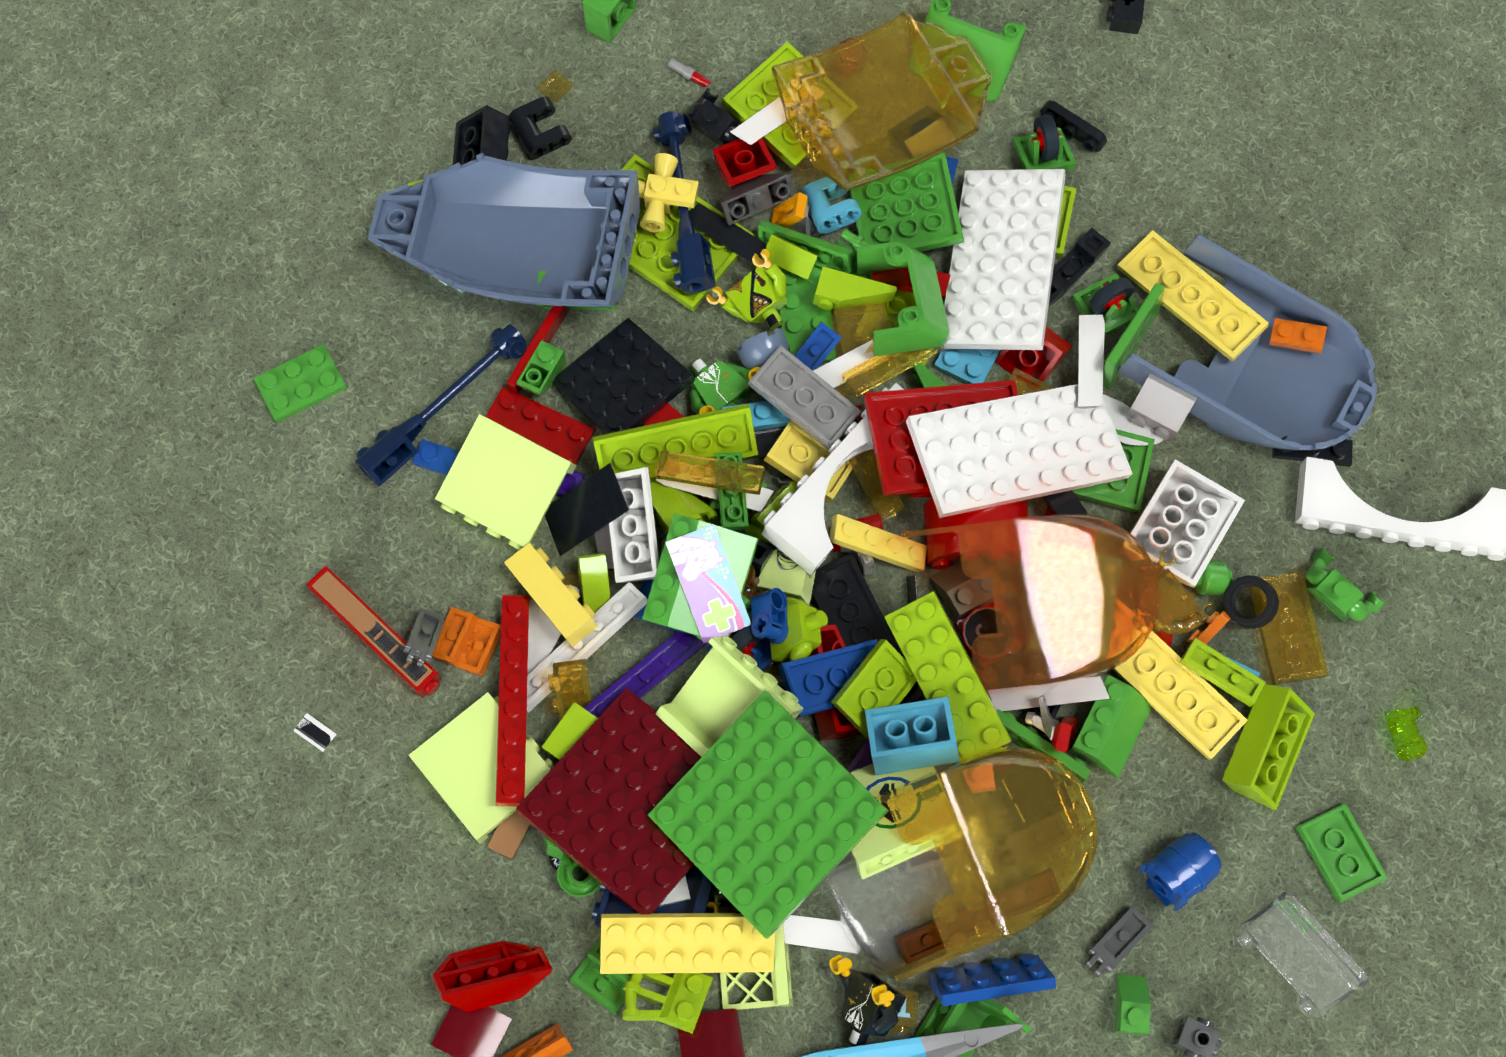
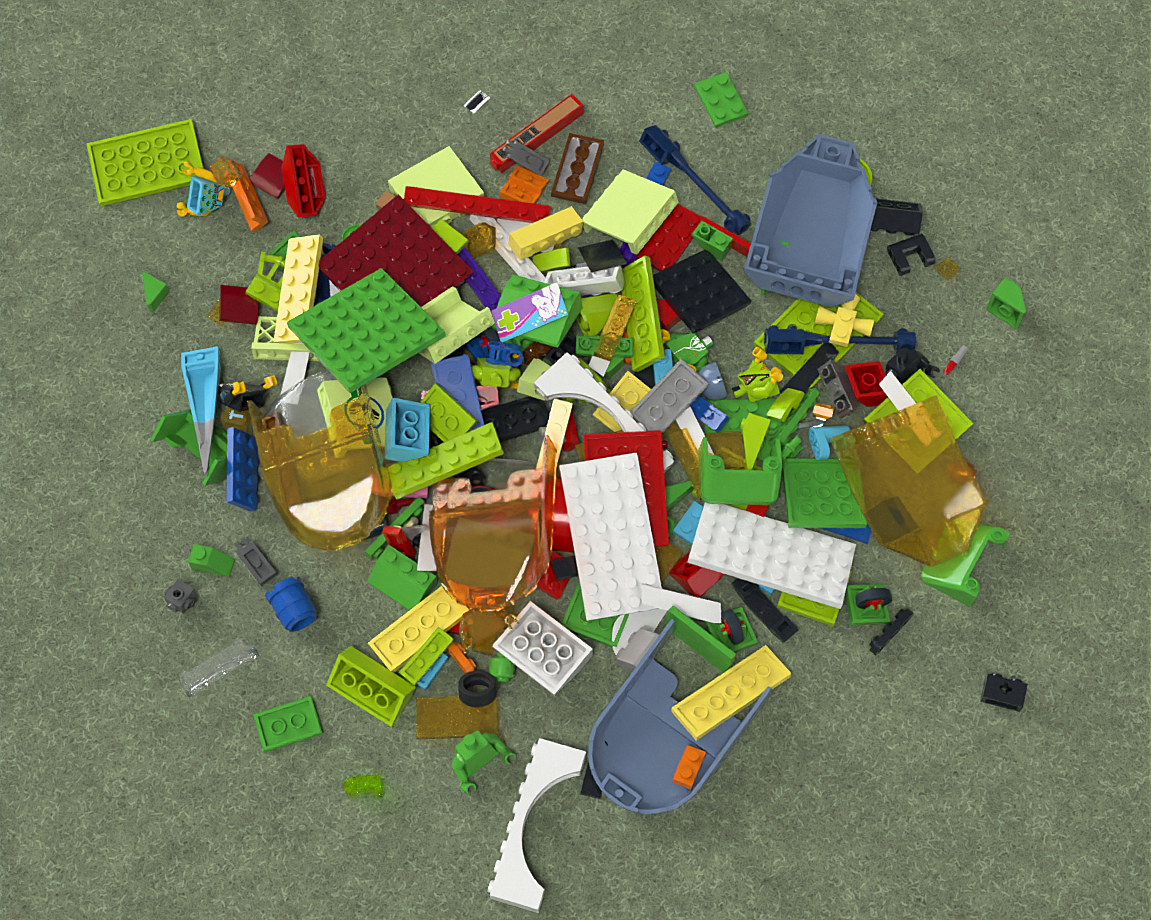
camera: 100 degrees right, 5 degrees down
(430, 567) = (577, 168): none -> reddish brown piece

